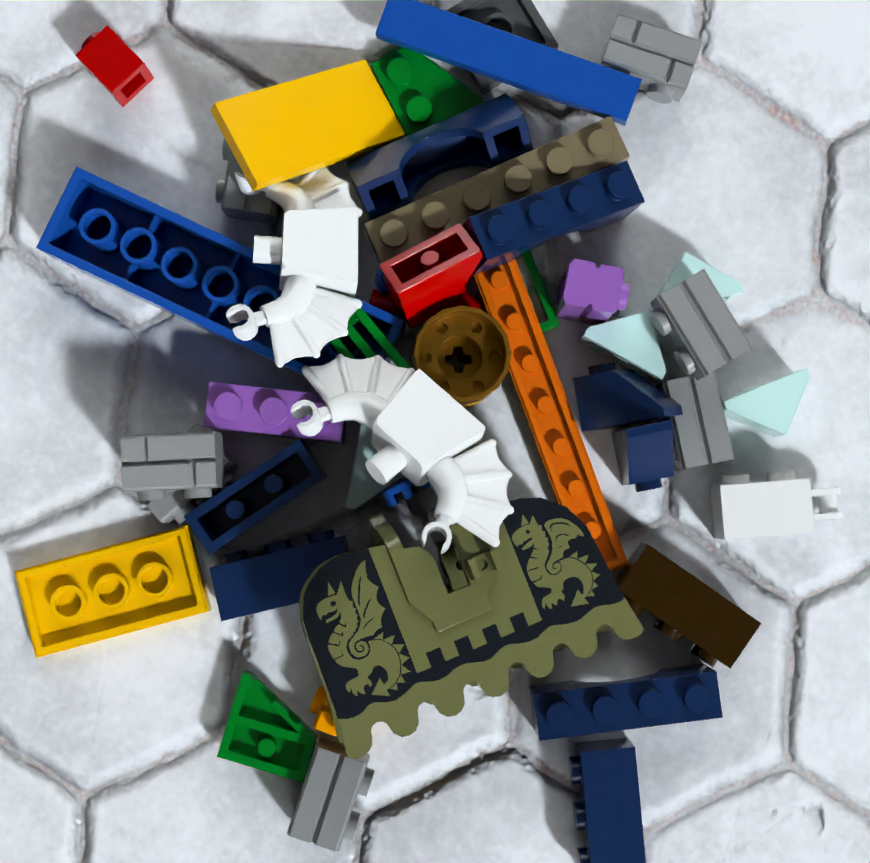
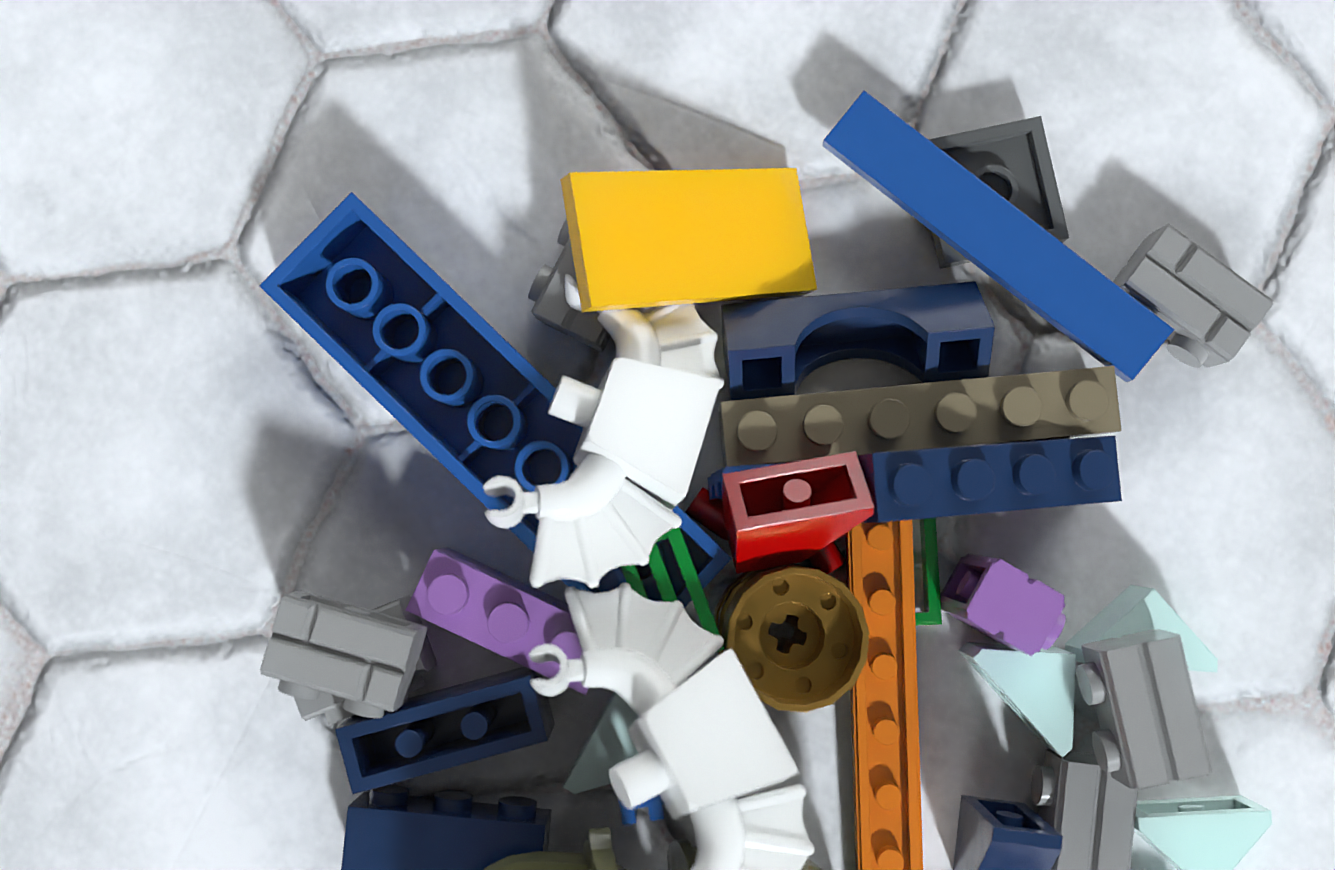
camera: 25 degrees right, 0 degrees up
(113, 591) = (209, 781): yellow tile -> none
(114, 65) = (452, 64): red brick -> none
(421, 90) = (859, 238): green wing -> none
(619, 398) = (995, 766): dark blue slope -> none

